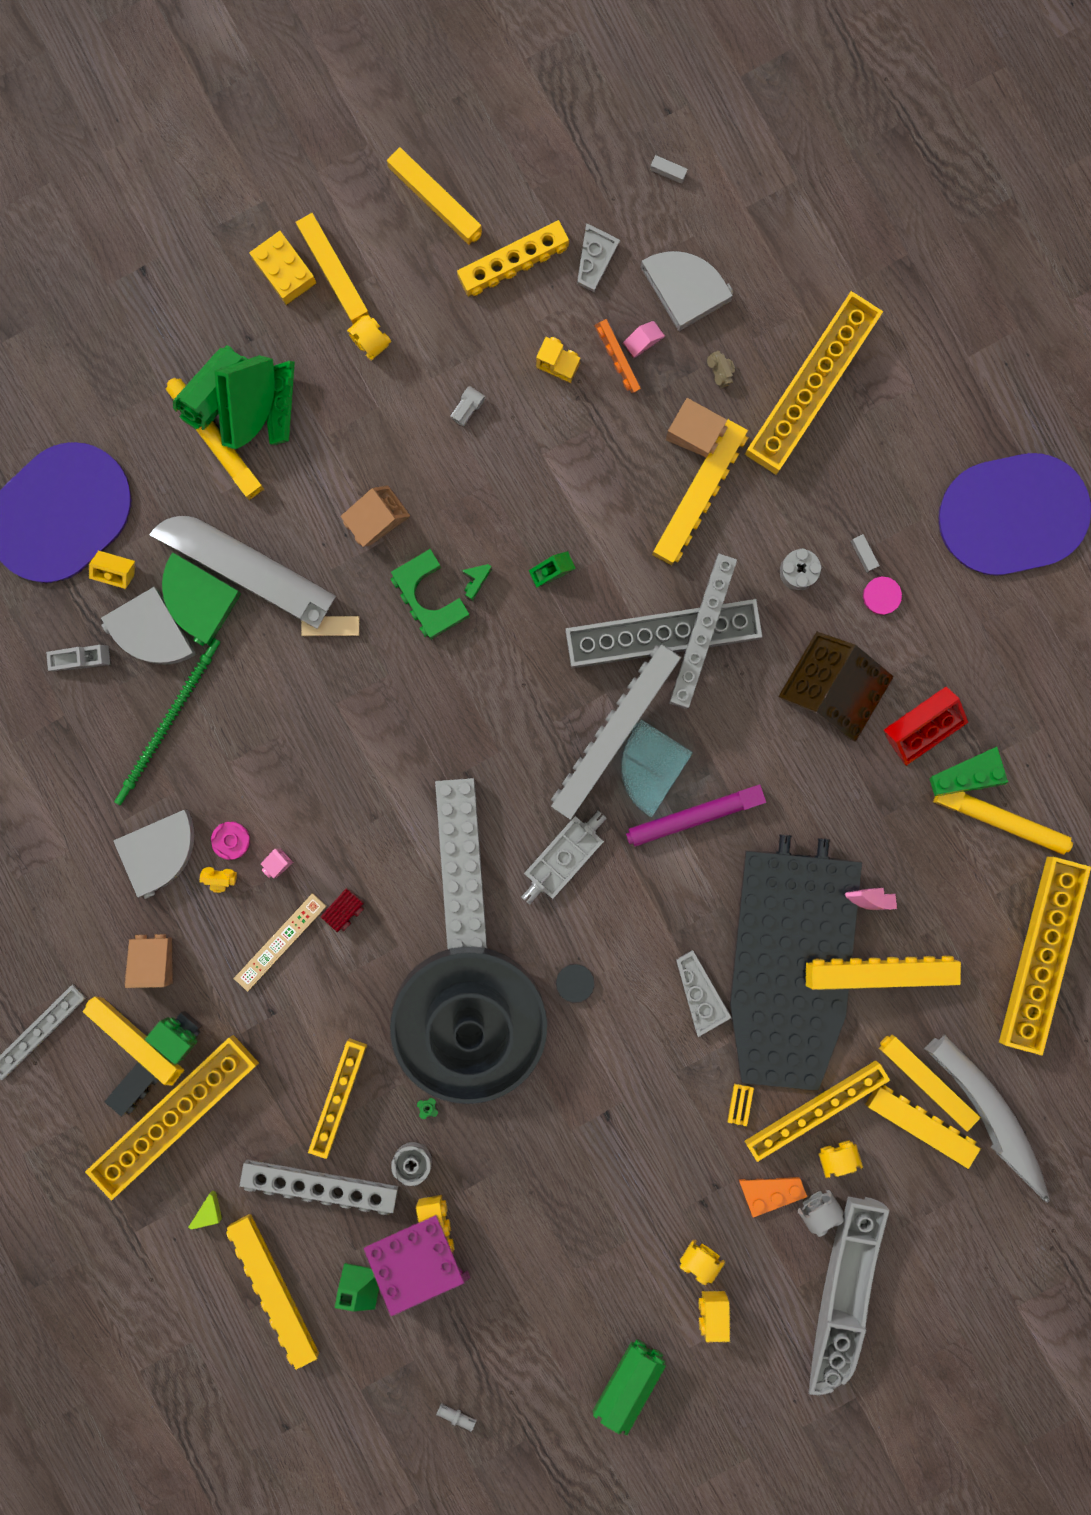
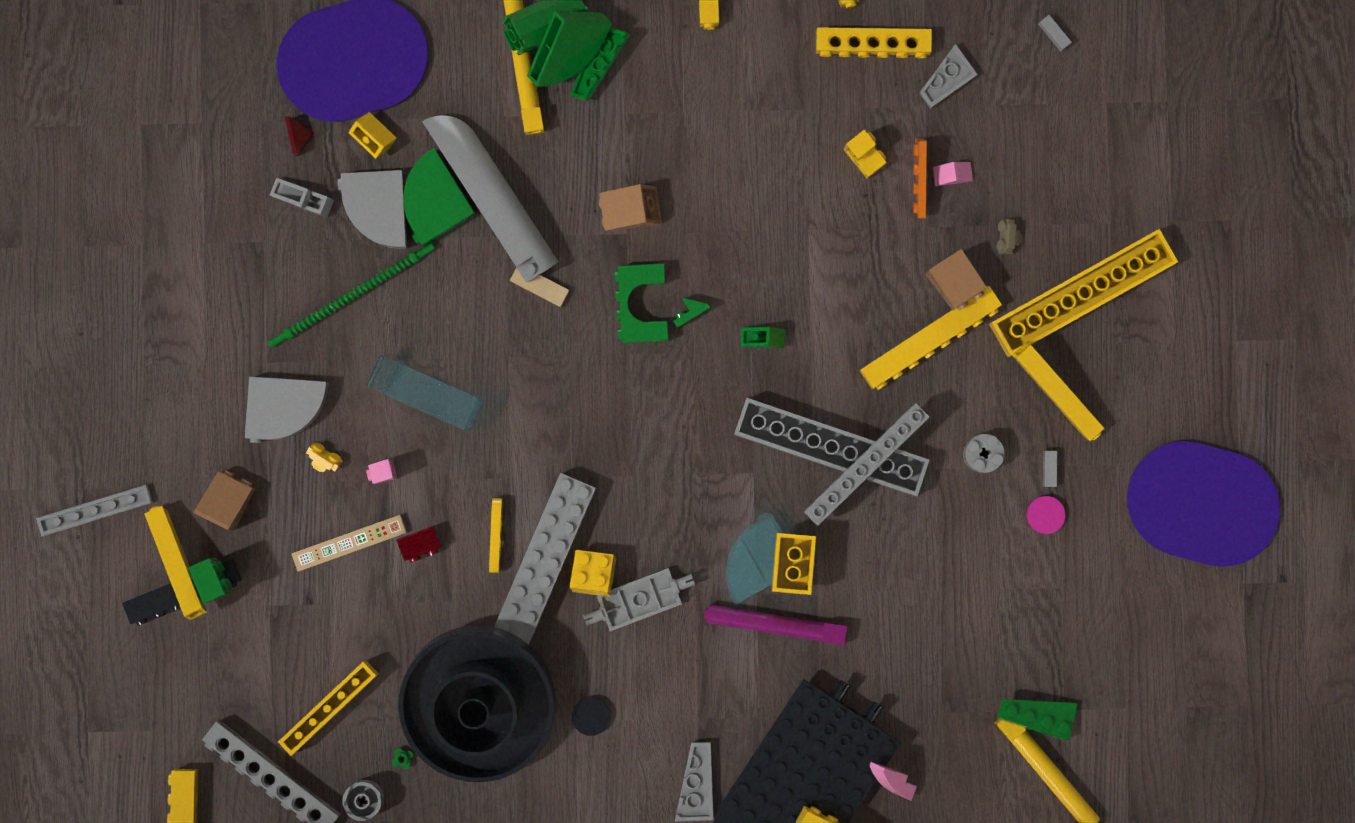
camera: 30 degrees right, 0 degrees up
(46, 604) = (298, 135): none -> dark red slope
(172, 1117) = (174, 648): yellow brick -> none
(208, 1213) = (162, 749): lime slope -> none
(230, 840) = (352, 429): dark pink tile -> none
(277, 774) = (425, 393): none -> clear light blue windscreen
(368, 337) = (708, 46): yellow brick -> none
(407, 867) = (495, 537): none -> yellow beam
(470, 401) = (766, 151): light grey piece -> none
(510, 855) = (592, 573): none -> yellow brick
(615, 732) = (742, 513): light grey brick -> none
(684, 753) = (793, 563): none -> yellow brick
(686, 286) = (1015, 146): light grey brick -> none
(837, 480) = (1058, 392): none -> yellow brick
(837, 684) = (963, 573): dark brown bracket -> none
(926, 725) = (1023, 651): red slope -> none

